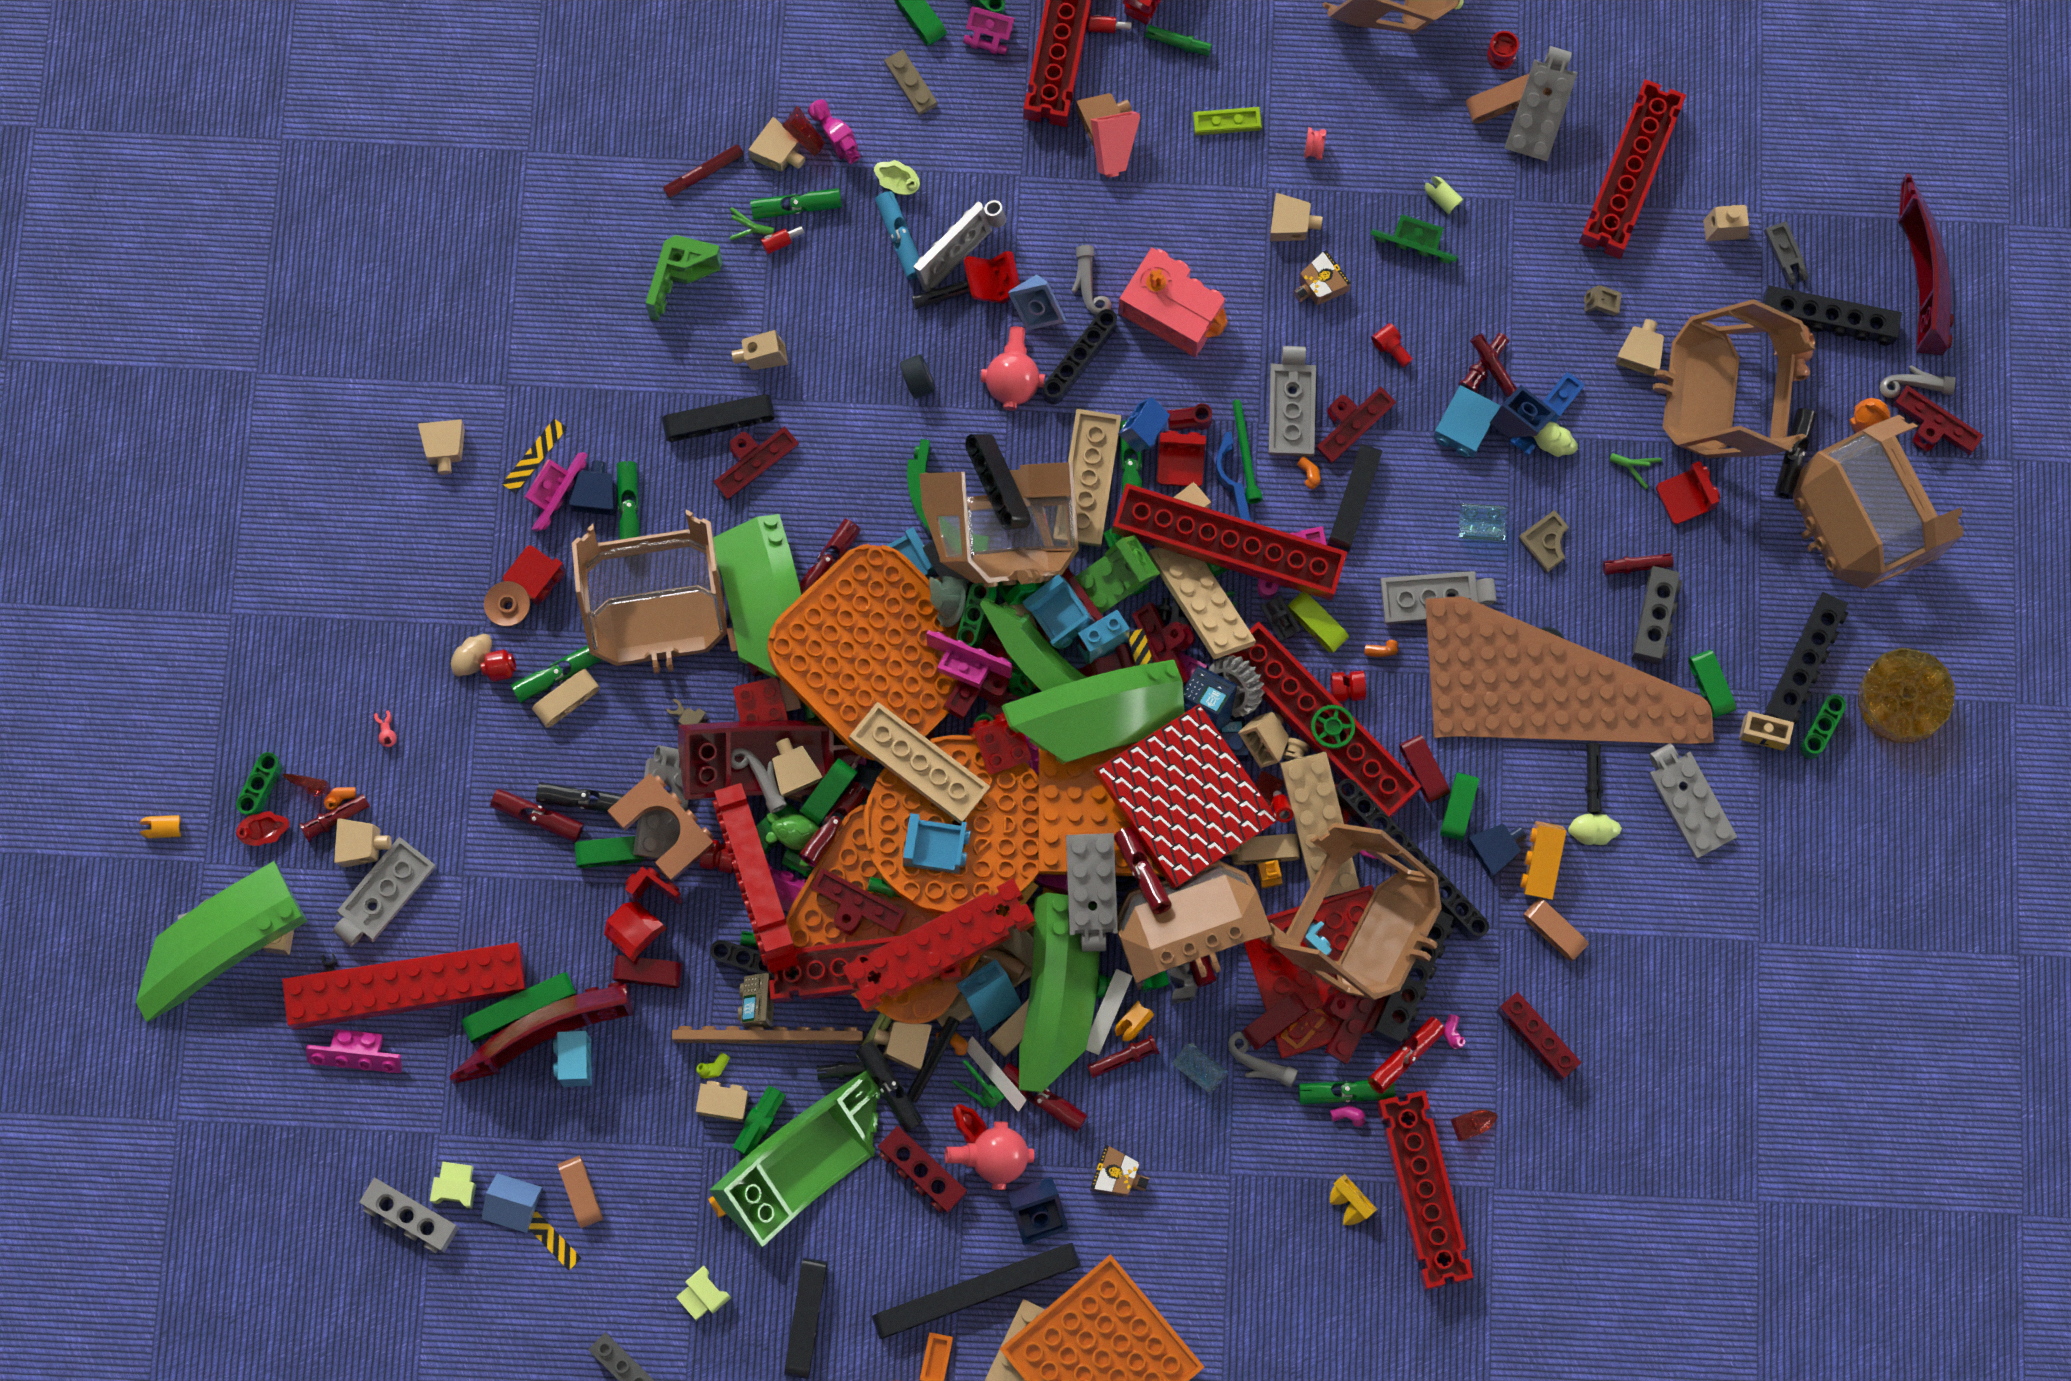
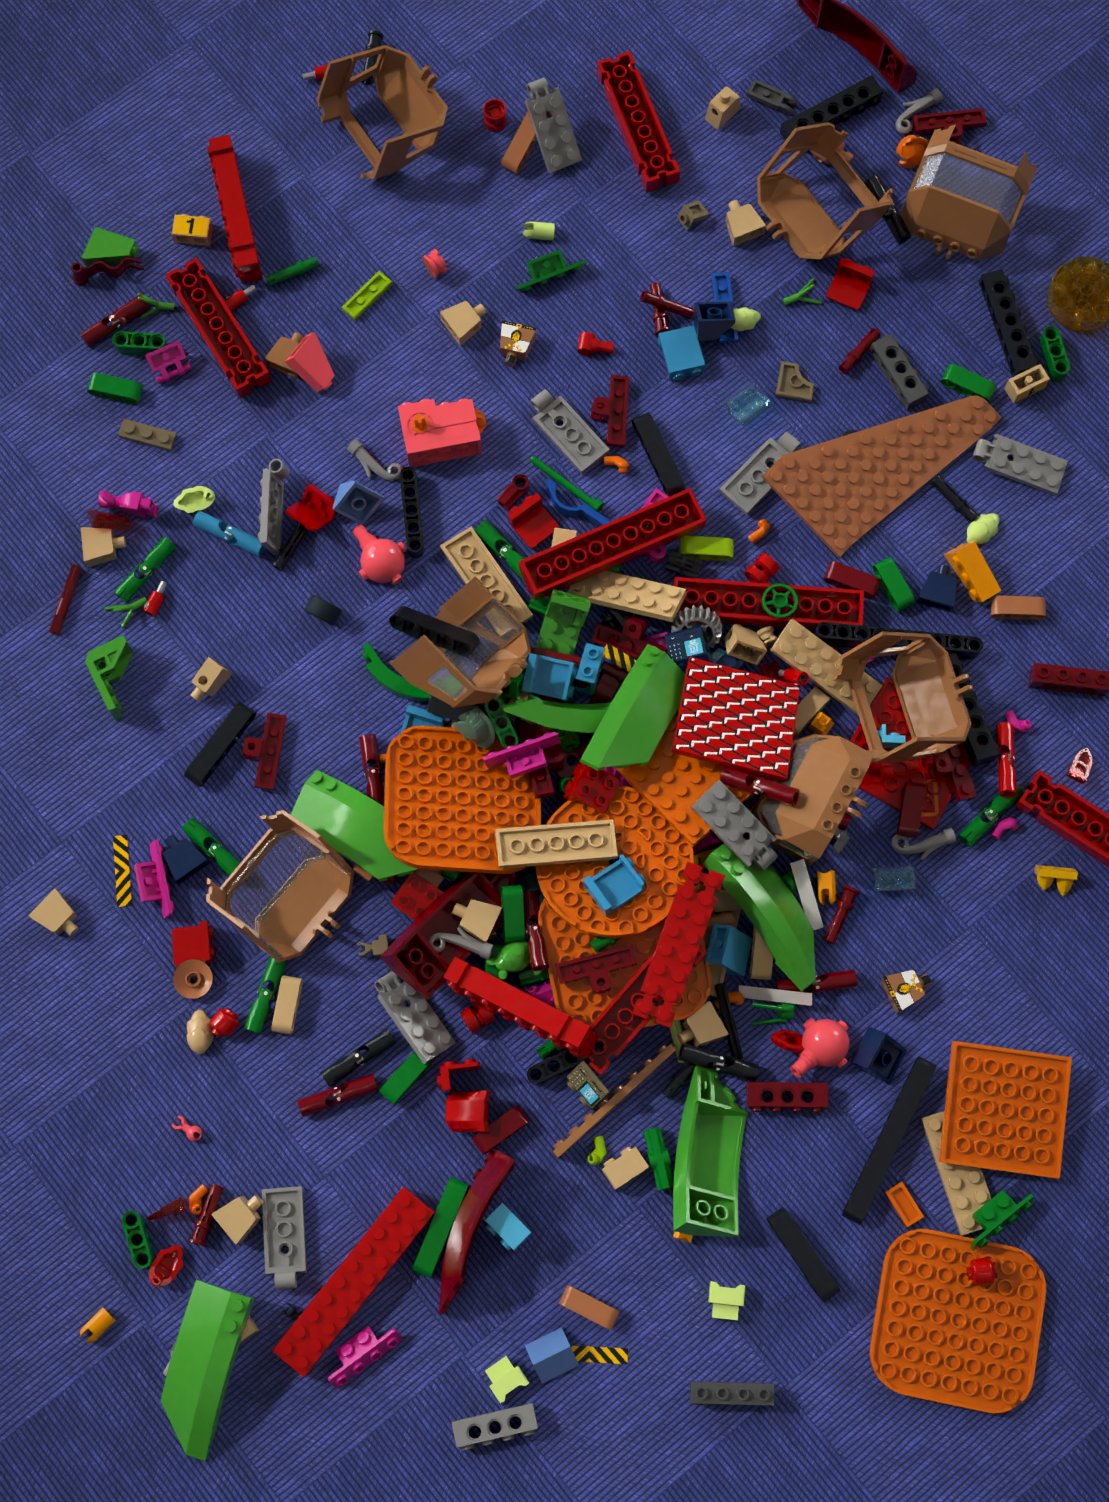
camera: 40 degrees left, 0 degrees up
(650, 796) = (404, 1015): nougat arch -> none
(1144, 424) = (492, 518): blue brick -> none

